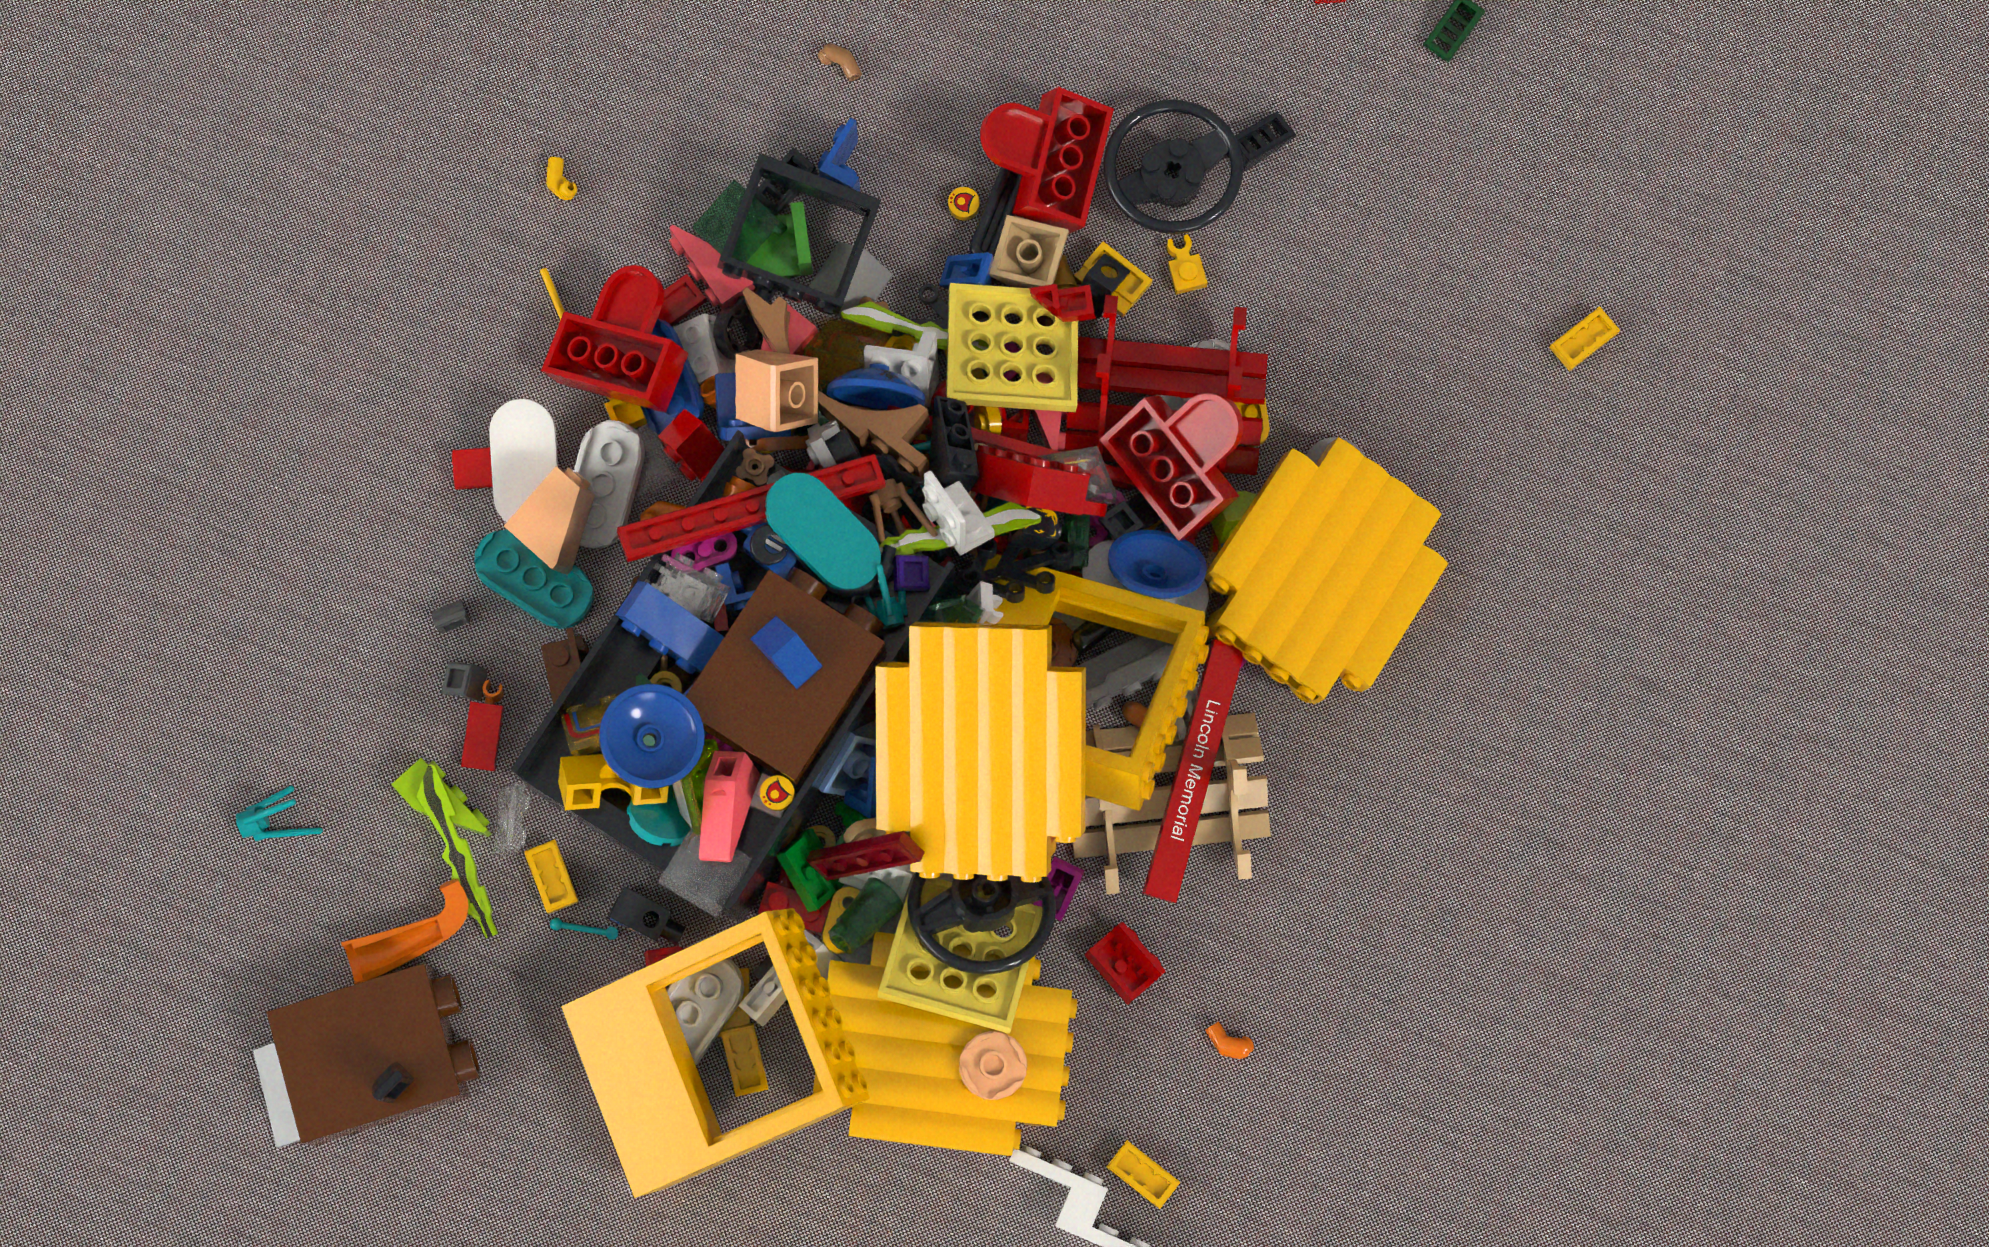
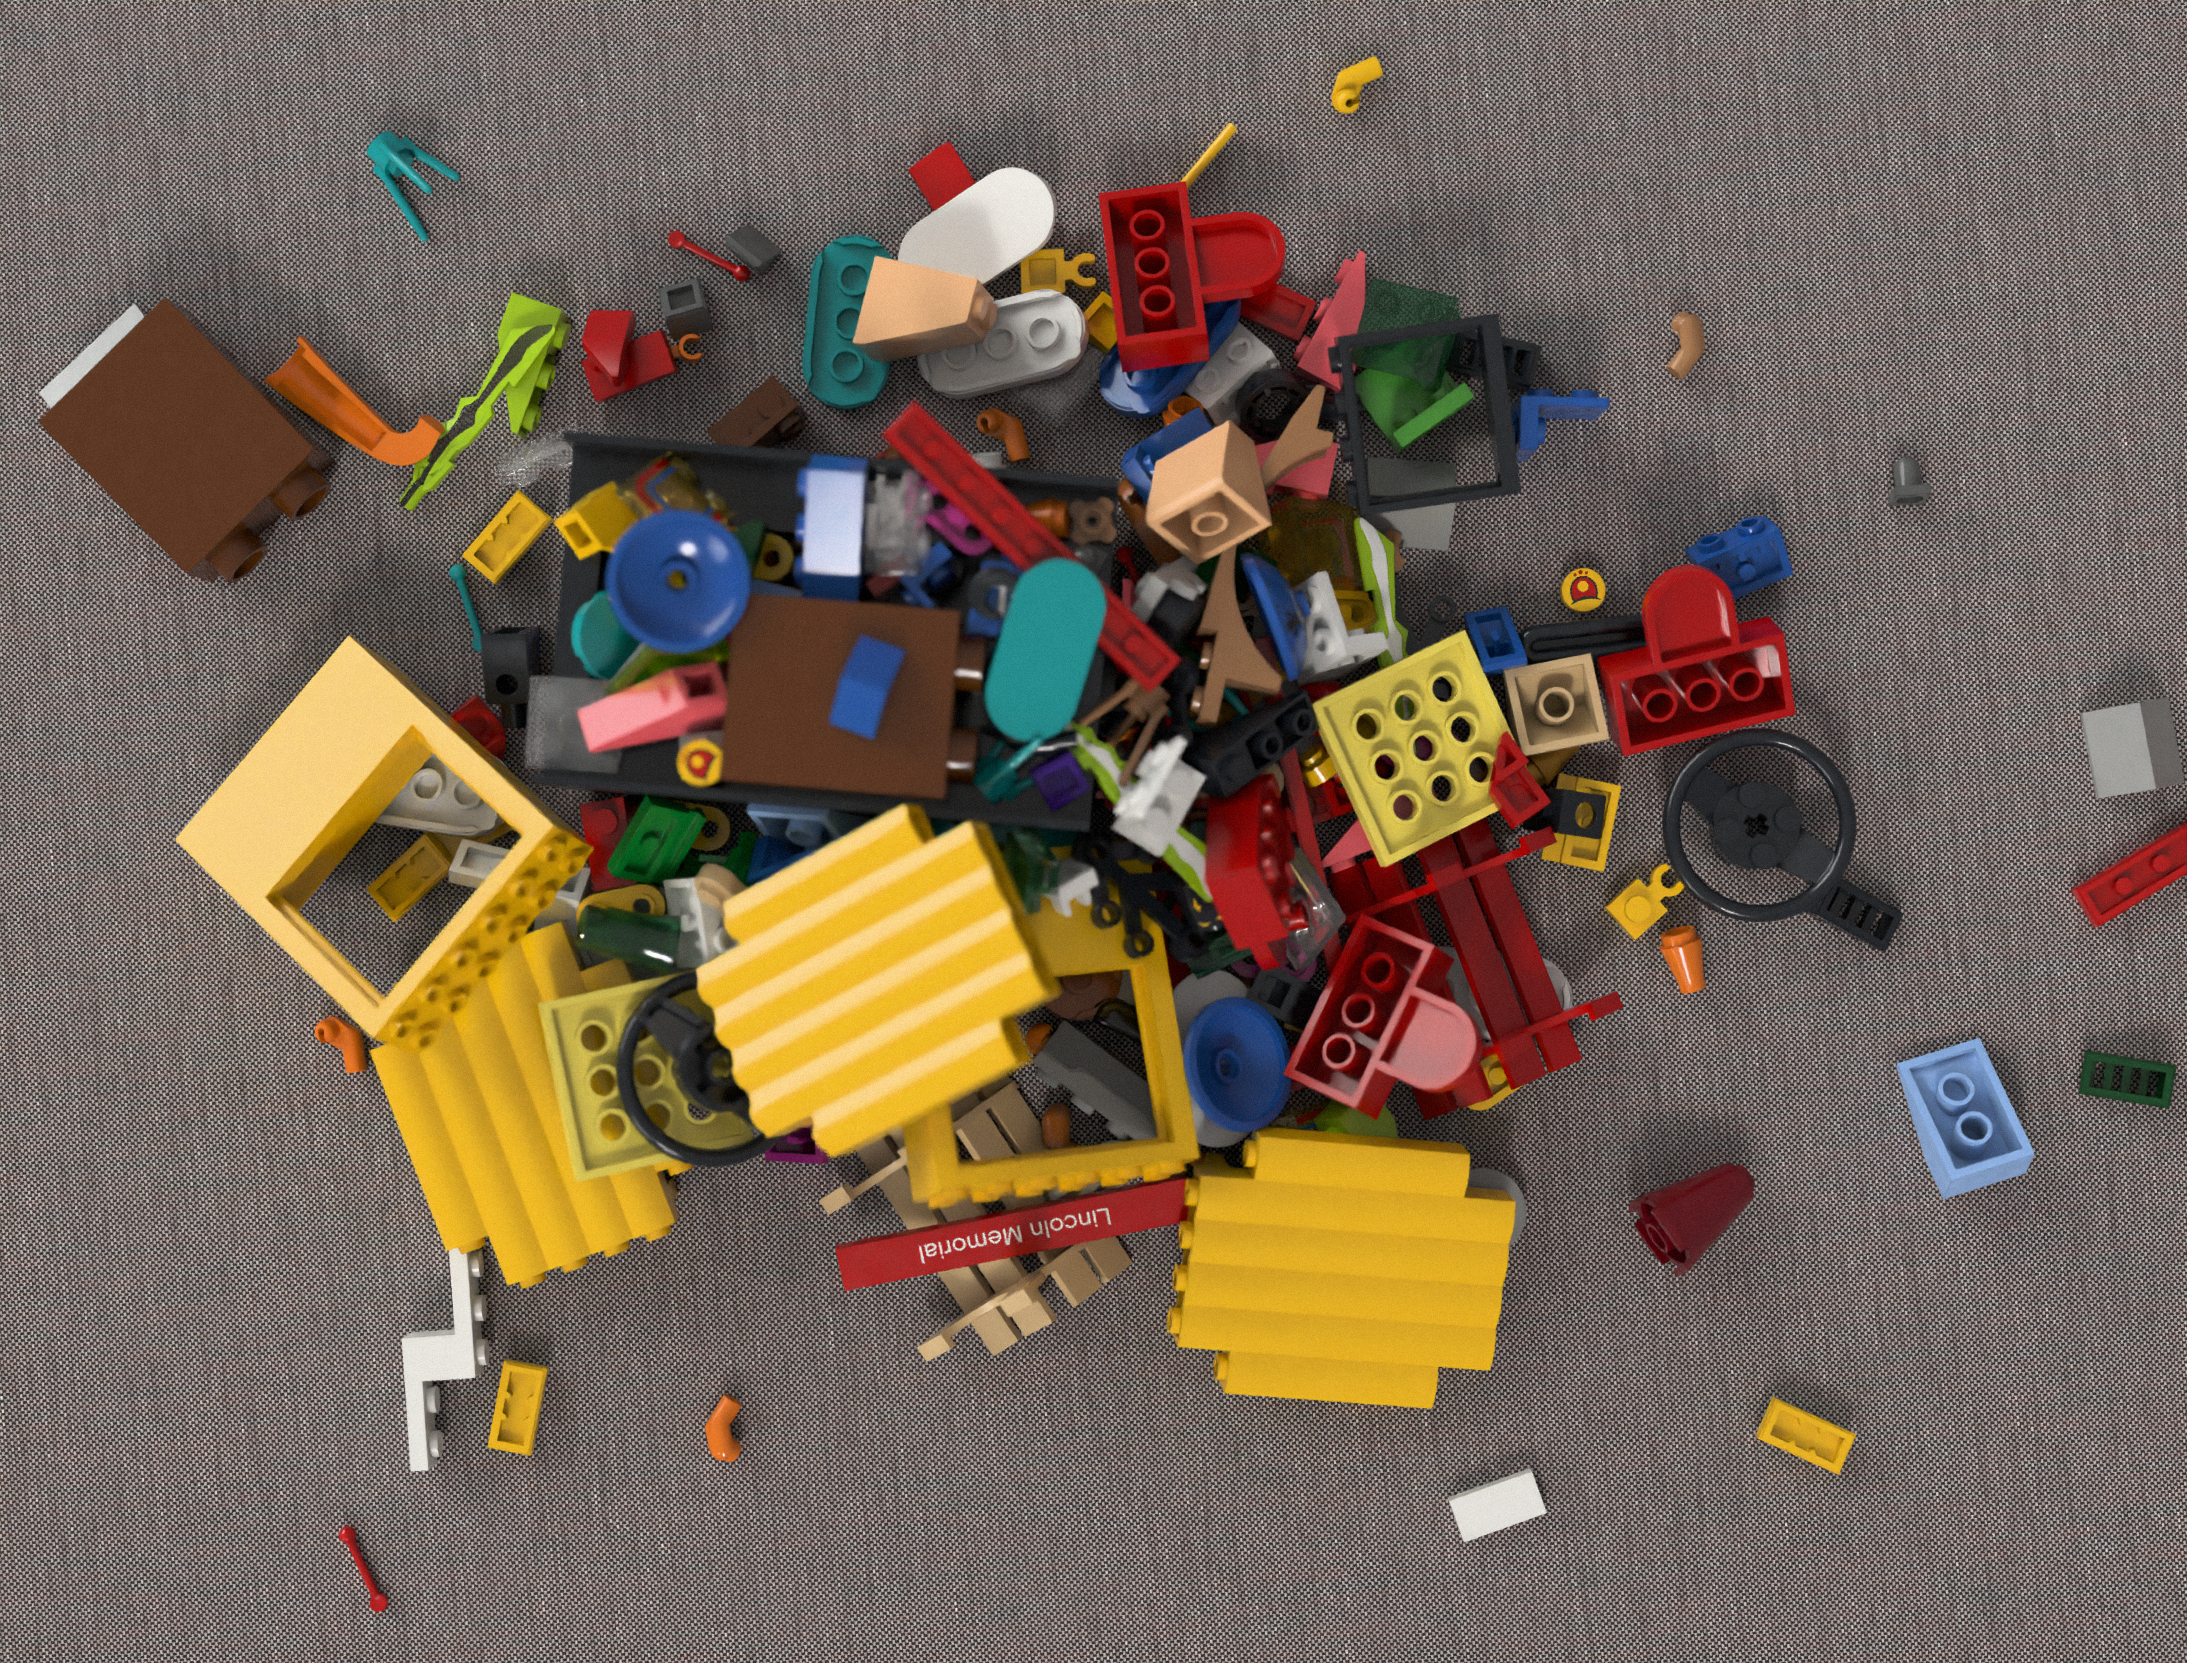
camera: 70 degrees right, 10 degrees up
(391, 1083) = (150, 487): black slope -> none
(417, 663) = (678, 241): none -> red hinge
(458, 740) = (606, 342): none -> red slope
(572, 430) = (1049, 271): none -> yellow plate
(691, 445) = (1099, 429): red hinge -> none
(830, 1164) = (346, 1038): none -> orange arm
(865, 856) = (691, 904): dark red tile -> none
(993, 86) = (1745, 555): none -> blue bracket
(993, 1065) = (534, 1177): light nougat tile -> none
(1125, 962) = (751, 1262): red bracket -> none
(1233, 258) = (1684, 957): none -> orange cone
(1403, 338) = (1691, 1214): none -> dark red cone
(1429, 138) = (1964, 1119): none -> light blue slope
(1534, 557) = (1497, 1505): none -> white tile

